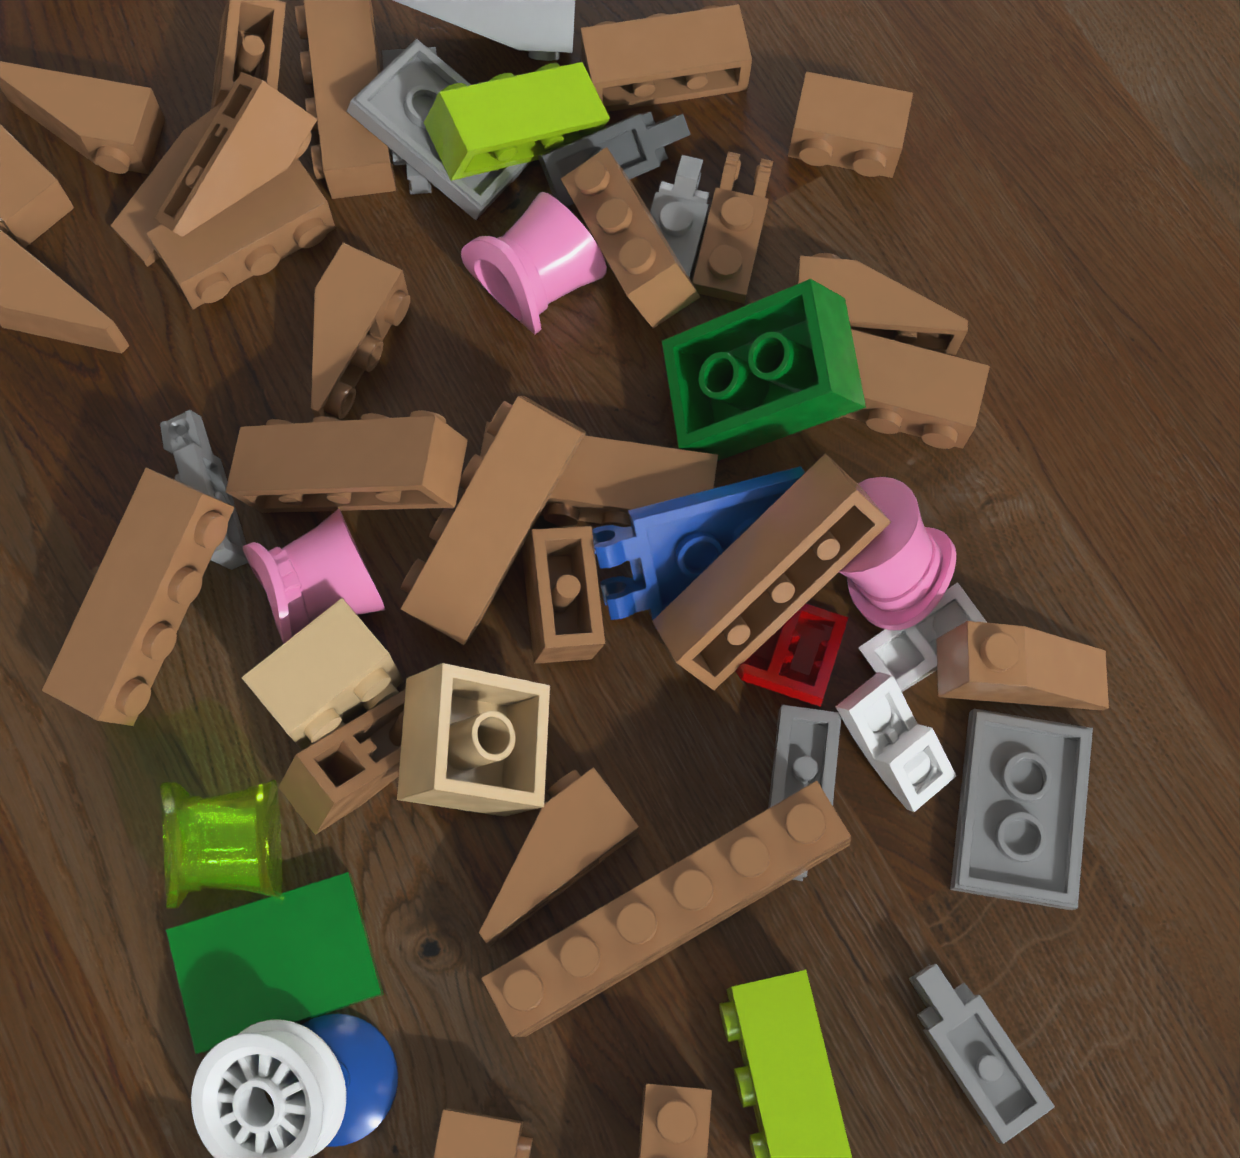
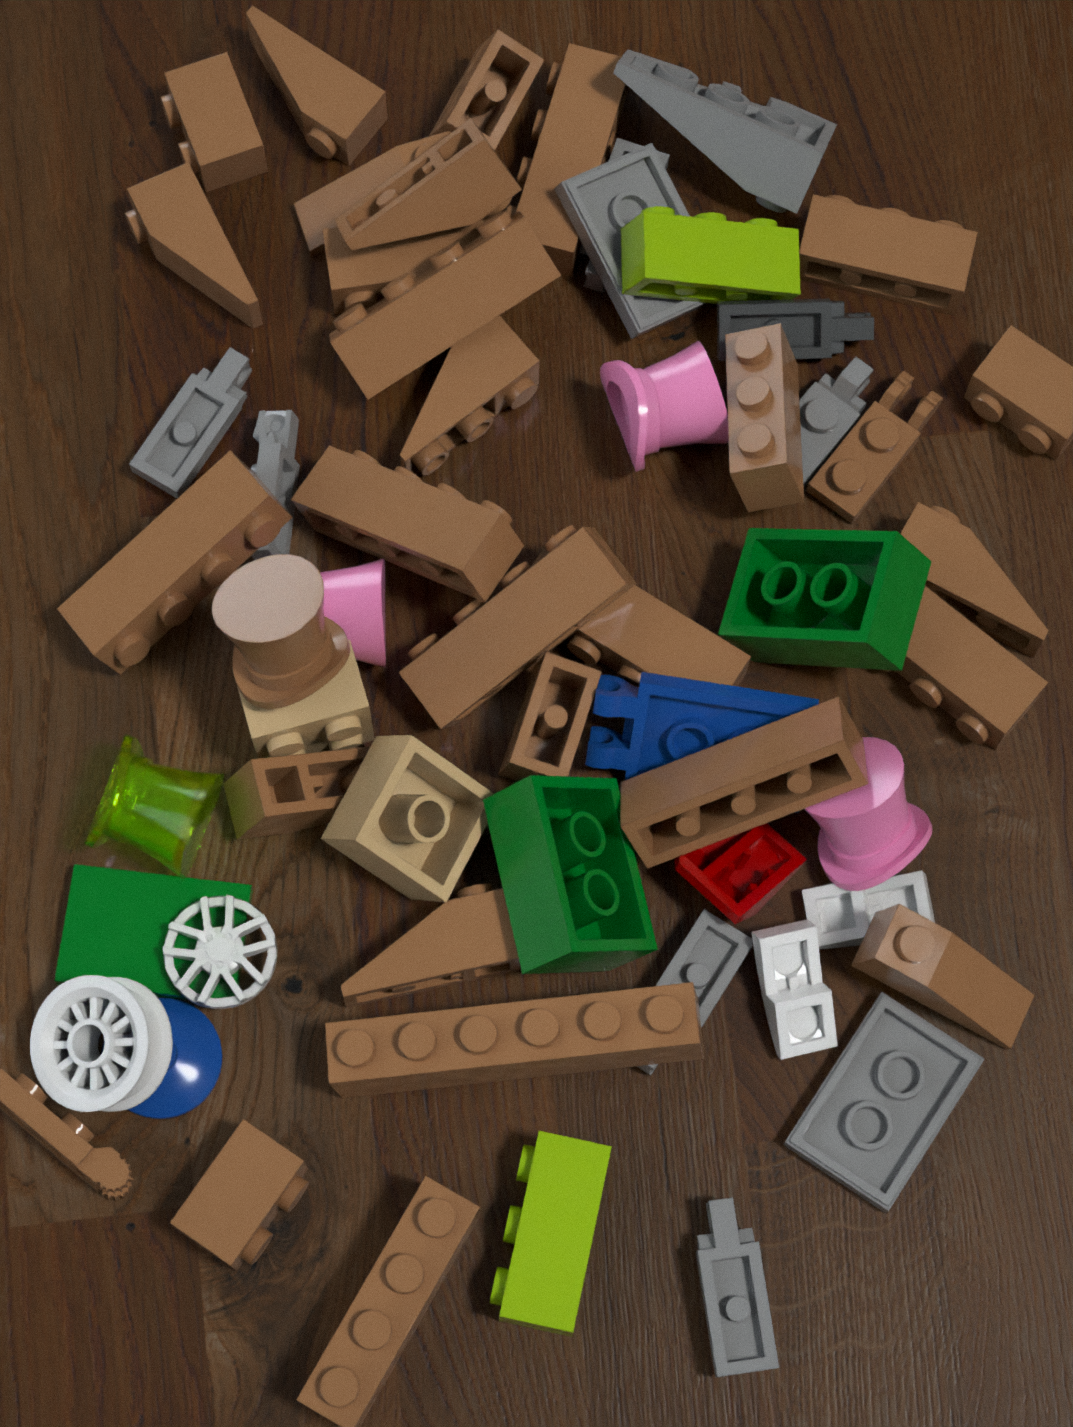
camera: 25 degrees right, 0 degrees up
(102, 462) = (193, 425): none -> light grey hinge
(269, 617) = (279, 630): none -> medium nougat hat
(290, 253) = (443, 303): none -> medium nougat brick
(346, 952) = (220, 952): none -> white wheel
(646, 729) = (569, 875): none -> green brick

